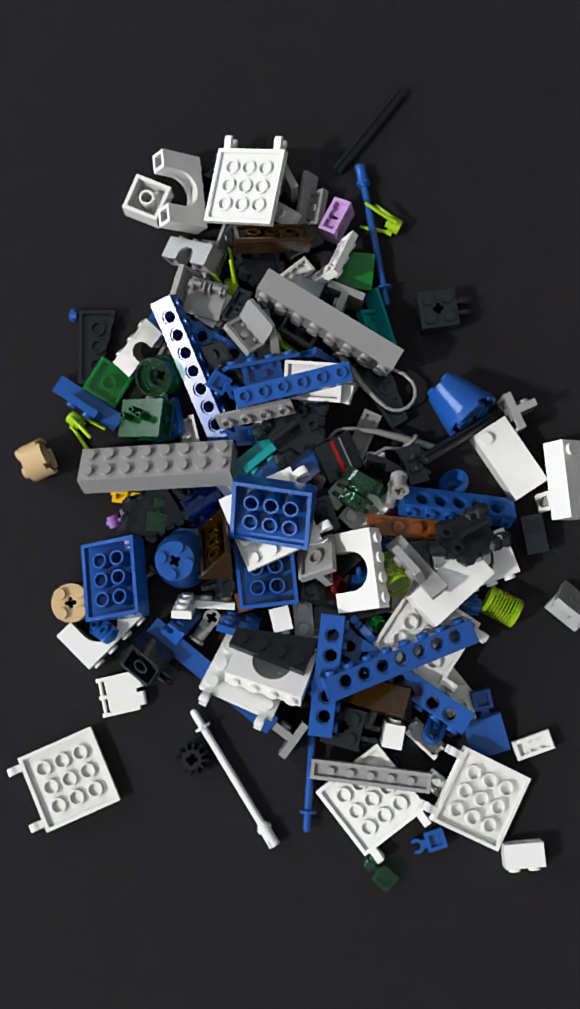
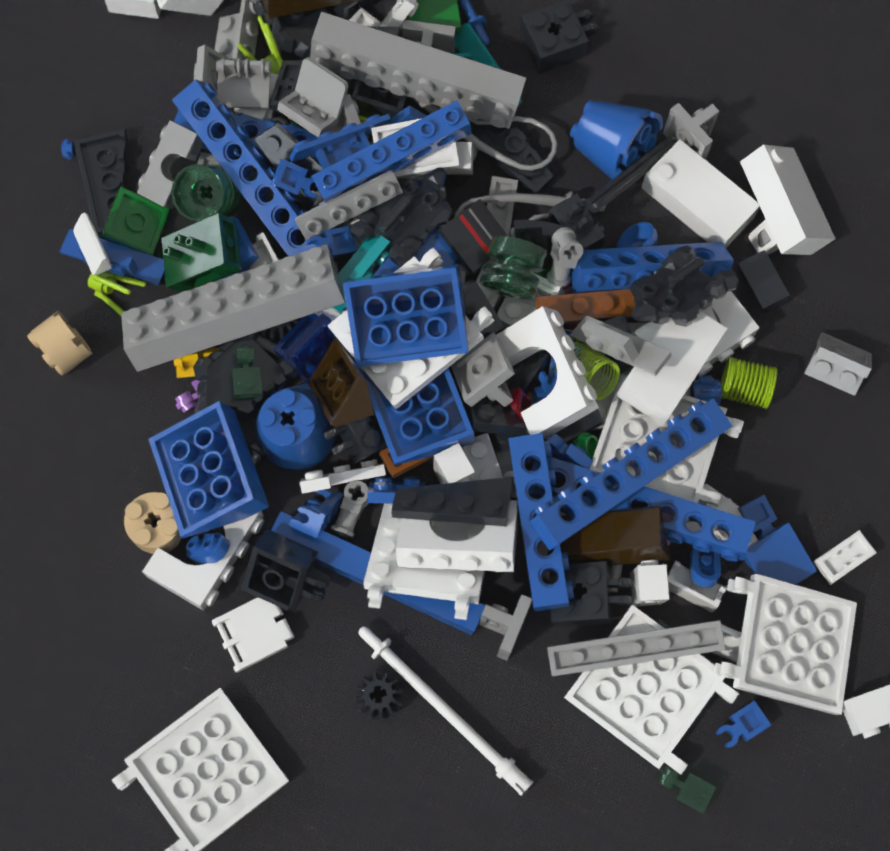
camera: 20 degrees left, 10 degrees down
(72, 397) = (91, 245): none -> white slope
(201, 255) = (226, 29): light grey arch -> none
(307, 810) = (561, 727): blue bar -> none

